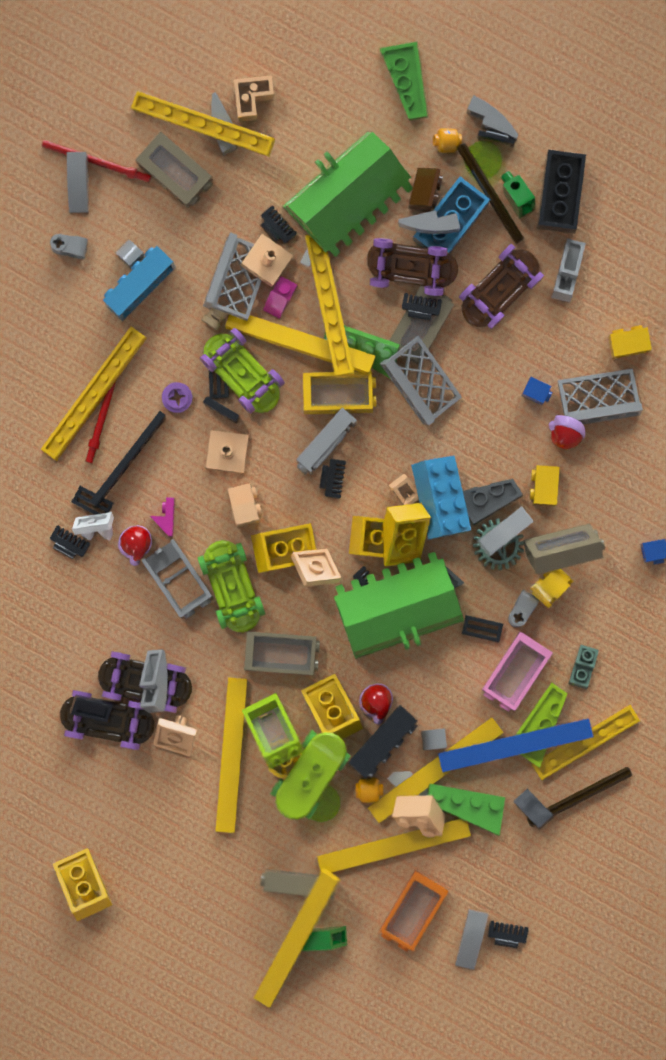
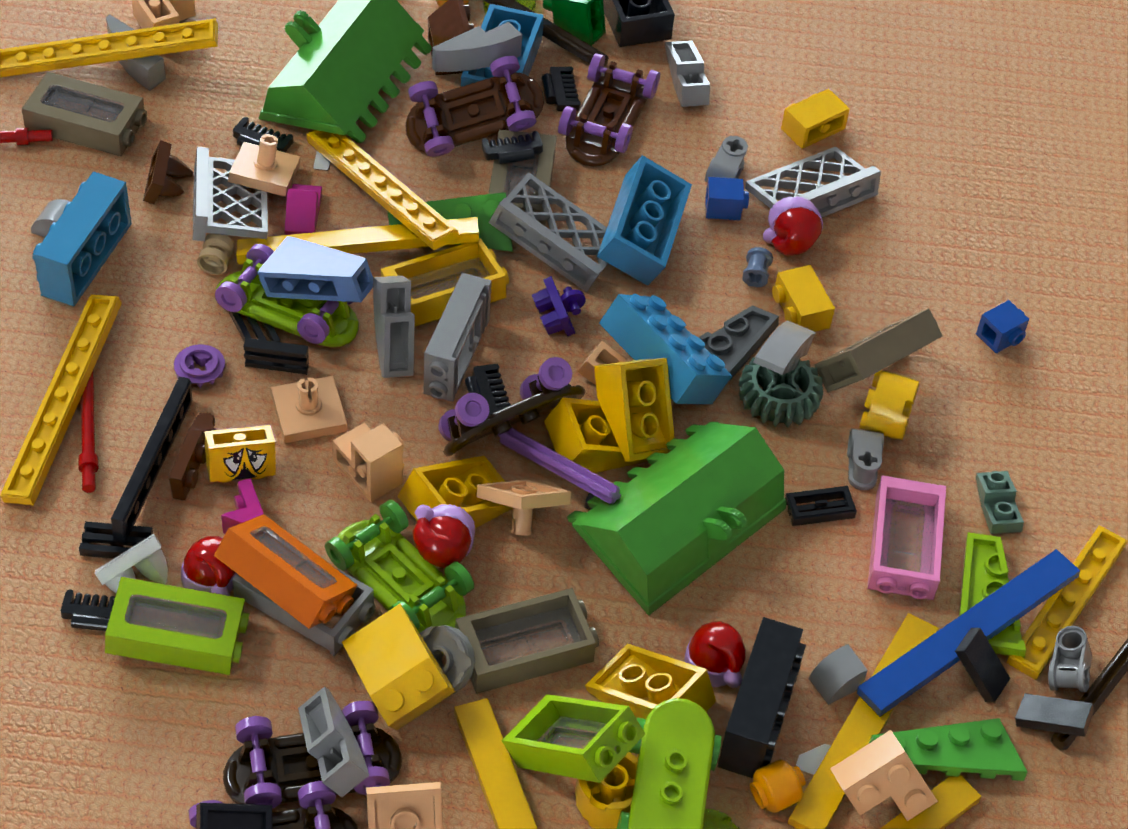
camera: 30 degrees left, 35 degrees down
(104, 575) = (176, 626): none -> lime piece
(151, 462) = (192, 454): none -> reddish brown hinge
(169, 572) = (286, 571): none -> orange piece
(175, 476) = (240, 453): none -> yellow brick
(204, 650) = (397, 668): none -> yellow slope
(210, 232) = (161, 167): none -> reddish brown tile
(230, 651) = (458, 652): none -> light grey plate
(258, 369) = (315, 273): none -> medium blue slope
(260, 578) = (443, 534): none -> red piece
(292, 421) = (394, 325): none -> light grey slope
(333, 509) = (539, 393): none -> piece
(345, 553) = (561, 466): none -> medium lavender axle
(401, 435) = (569, 302): none -> dark purple hips
(476, 252) = (560, 88): none -> black piece
(476, 394) = (644, 220): none -> dark azure brick
(510, 768) = (982, 664): none -> black tile
(531, 449) = (757, 267): none -> sand blue bush
(551, 363) = (729, 159): none -> light grey piece
(559, 784) = (1070, 660): none -> light grey piece

